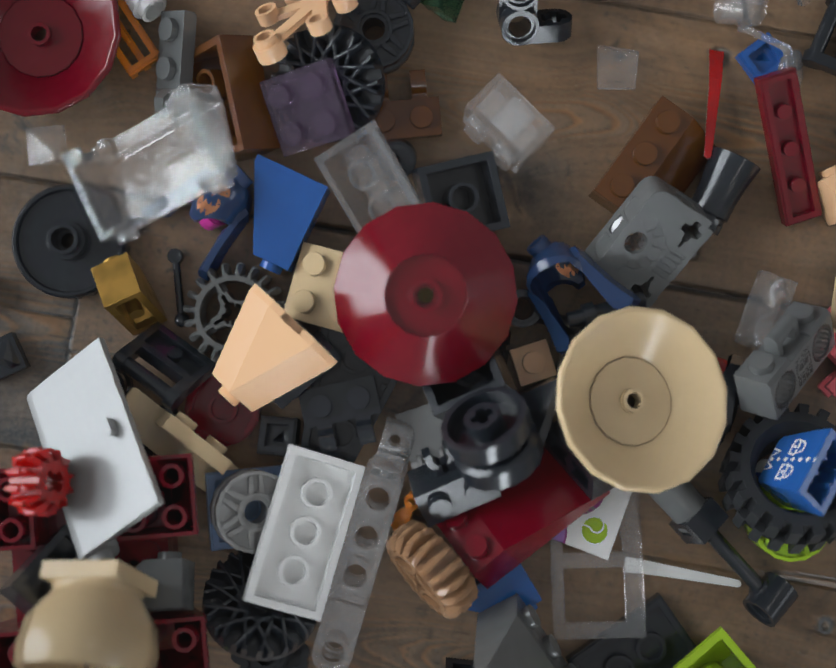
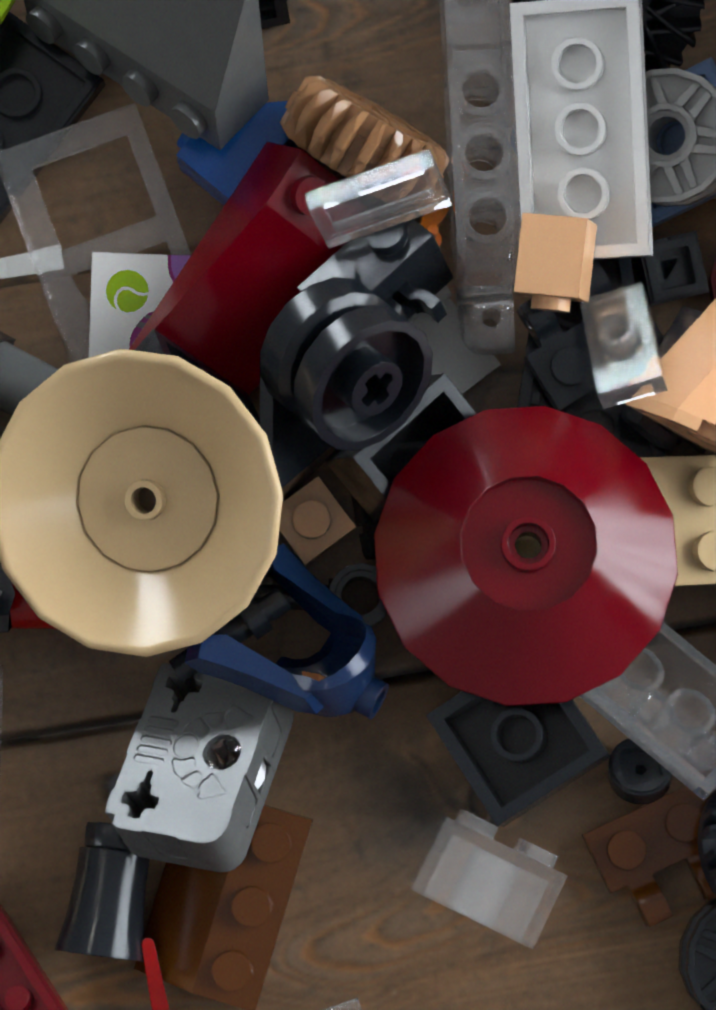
camera: 160 degrees right, 5 degrees down
(326, 396) = (623, 345): none -> clear plate
(348, 458) = (555, 260): none -> light nougat brick
(439, 530) = (378, 198): none -> clear tile

